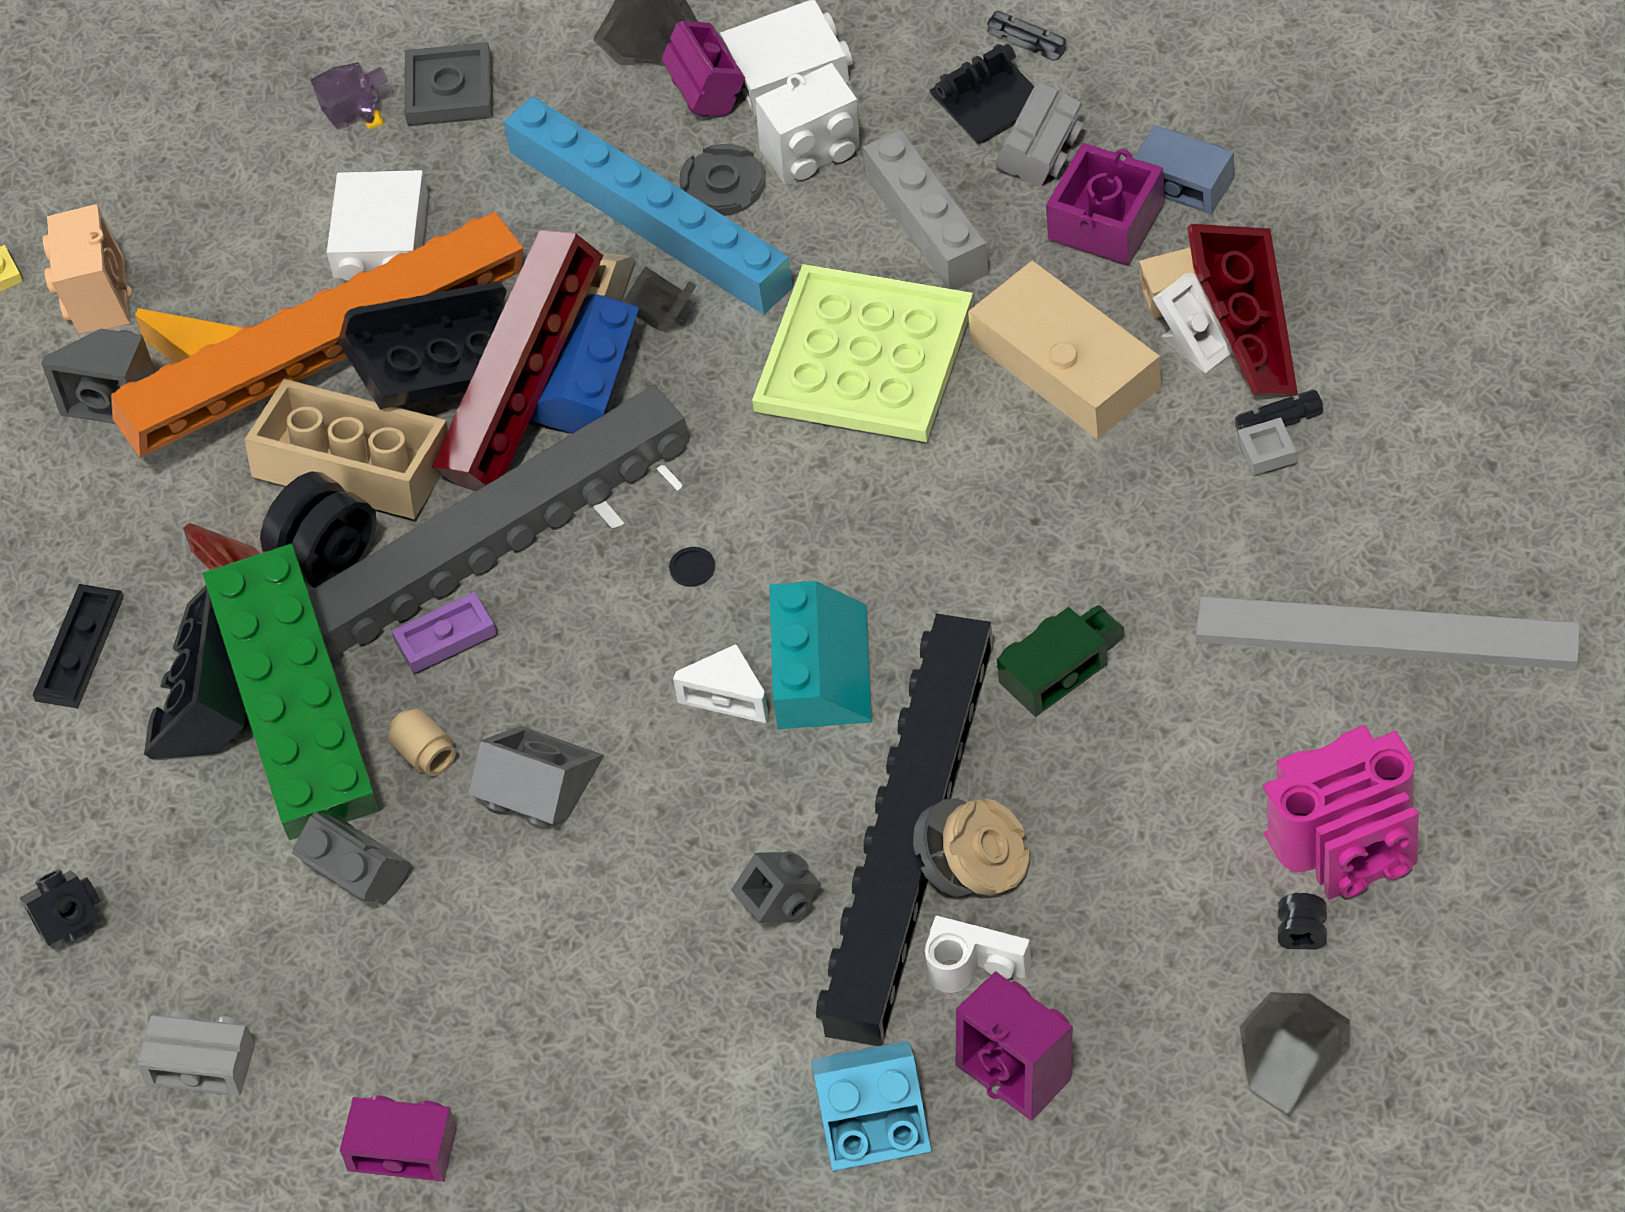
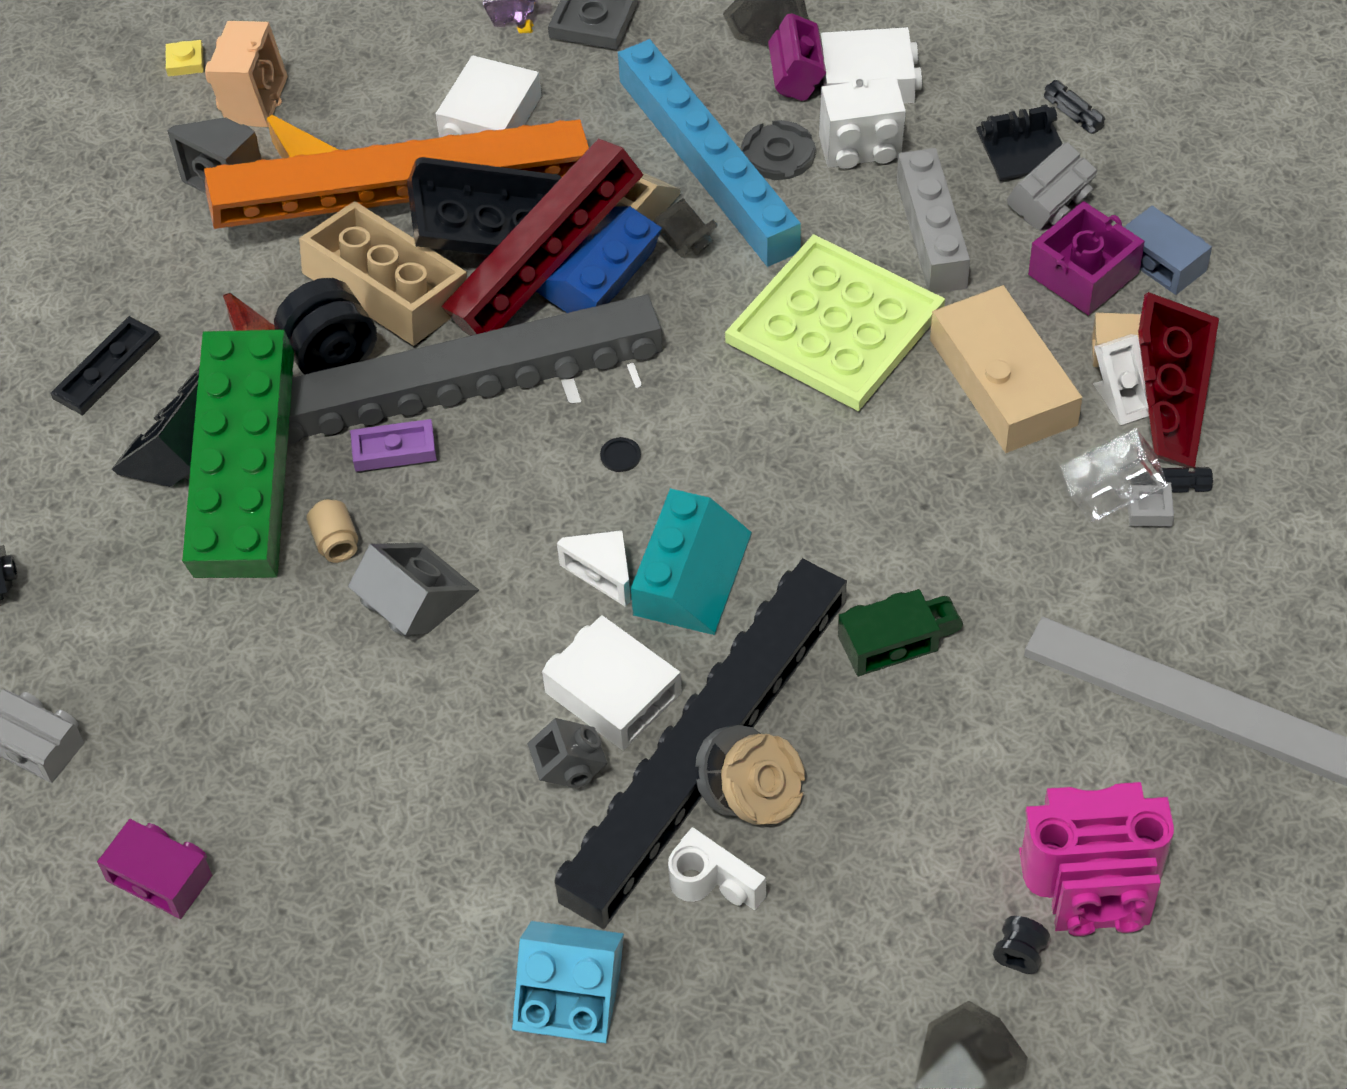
camera: 15 degrees right, 0 degrees up
(351, 858) = (228, 609): dark grey brick -> none
(788, 801) = (611, 682): none -> white brick
(1013, 1044) = (712, 971): magenta brick -> none
(1221, 428) = (1113, 475): none -> clear brick

